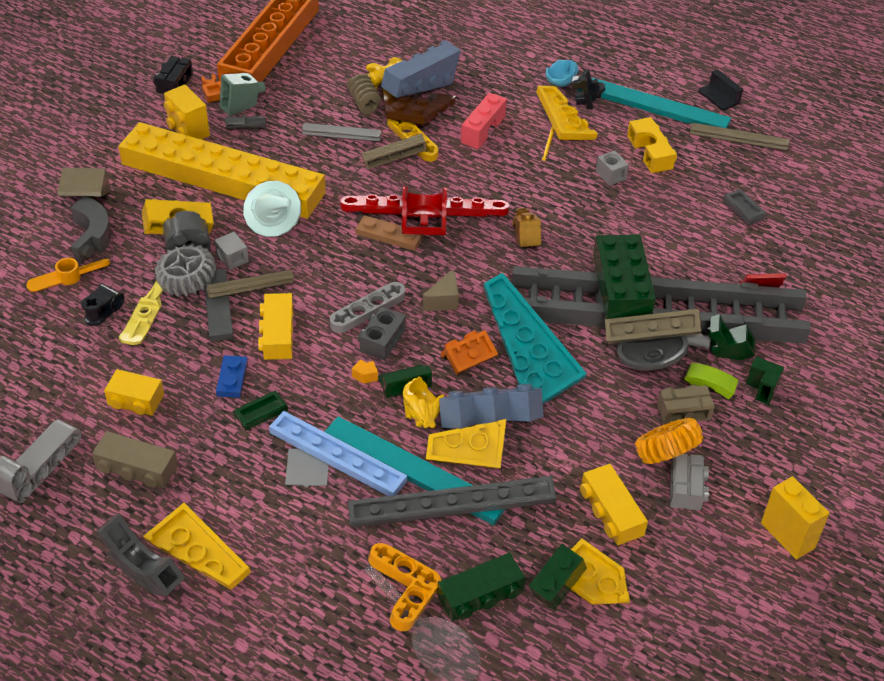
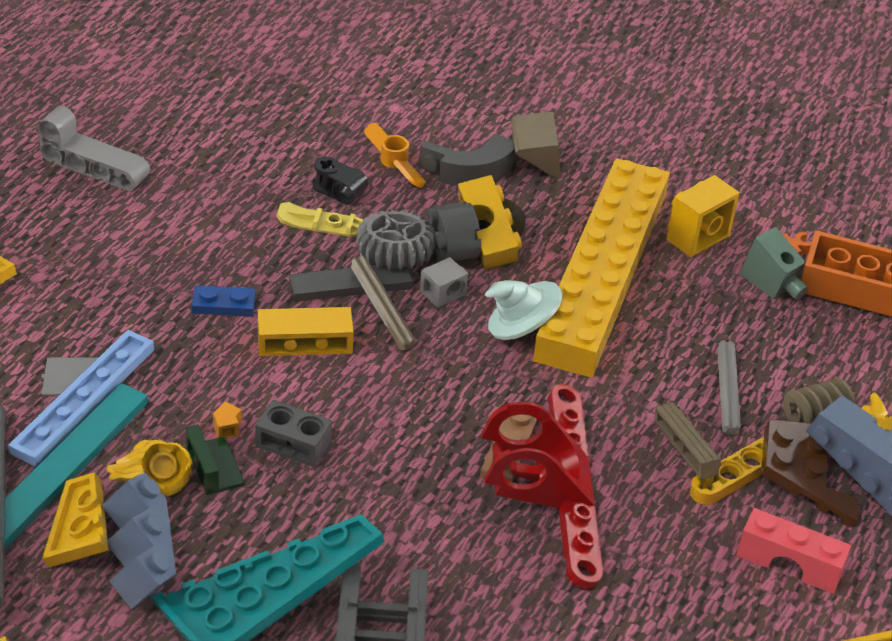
camera: 85 degrees right, 5 degrees down
(134, 392) = (190, 218): yellow brick -> none
(135, 460) = (86, 227): dark tan brick -> none
(173, 74) = (800, 207): black brick -> none
(245, 122) = (721, 283): dark grey axle -> none
(260, 410) = (166, 329): dark green tile -> none
(365, 304) = (356, 420): light grey beam -> none
(442, 295) = (379, 499): dark tan slope -> none
(470, 351) = (258, 526): orange bracket -> none
(527, 228) = (525, 595): pearl gold brick -> none

